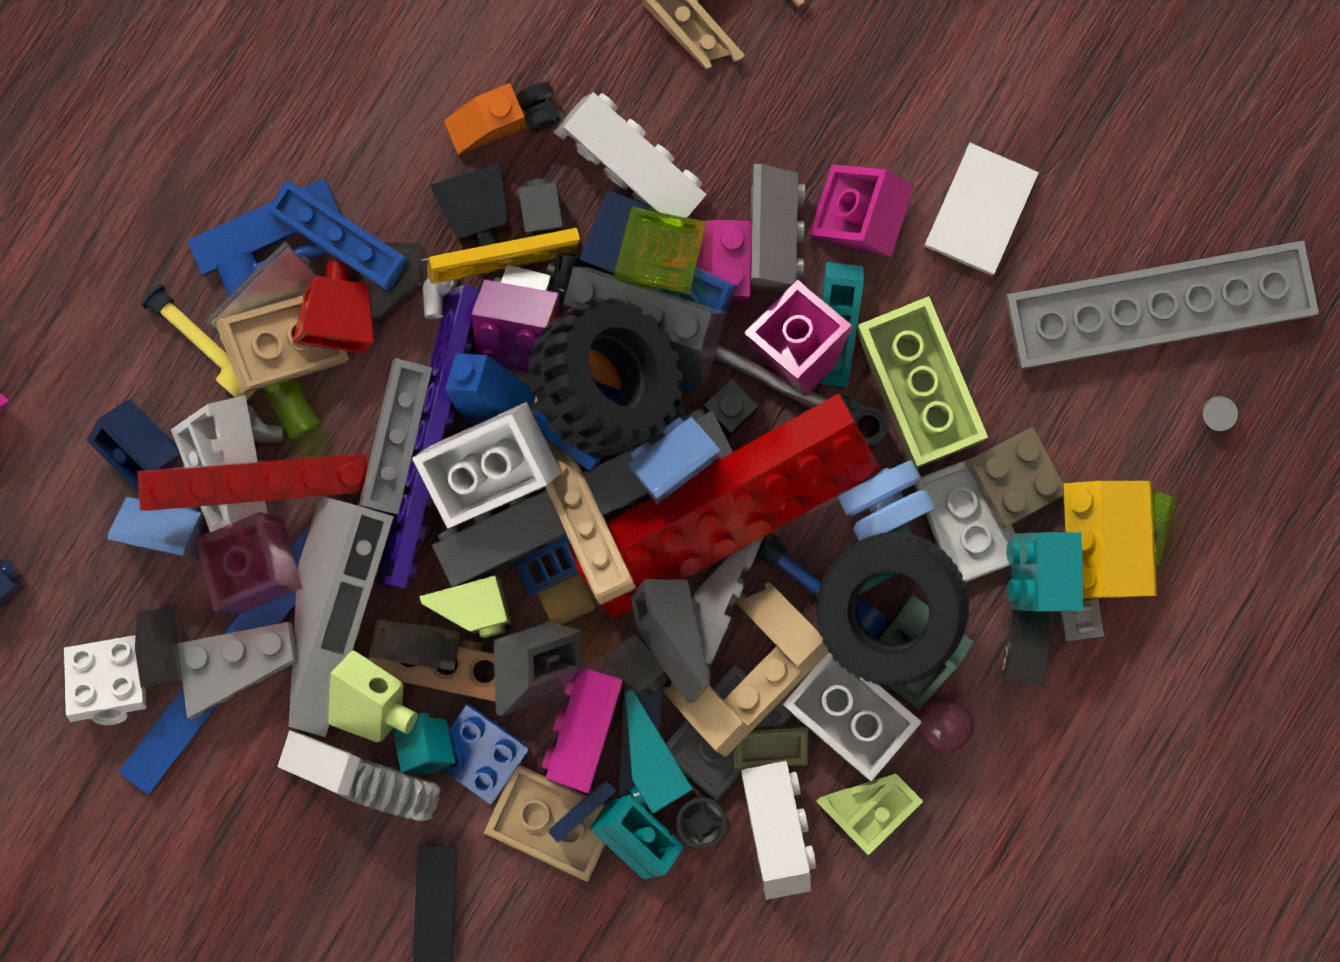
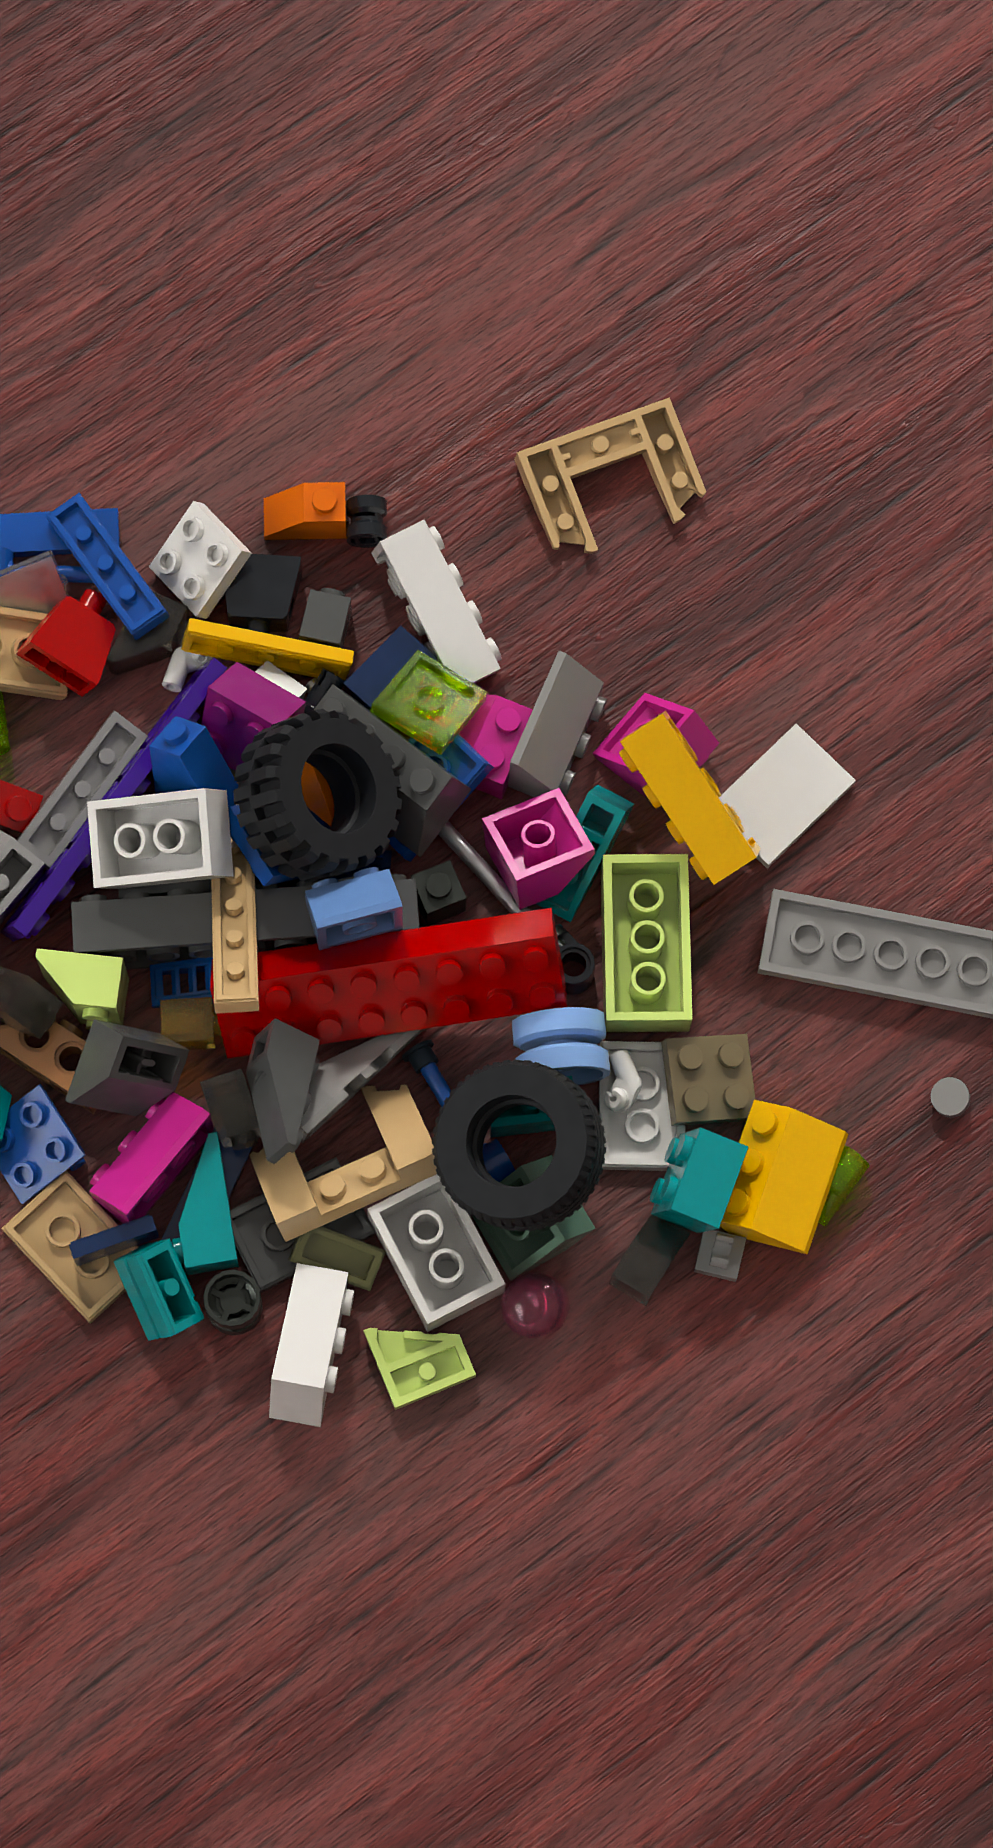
camera: 15 degrees right, 10 degrees down
(414, 198) = (200, 560): none -> white plate
(914, 251) = (688, 798): none -> yellow wedge
(951, 510) = (627, 1084): none -> white arm

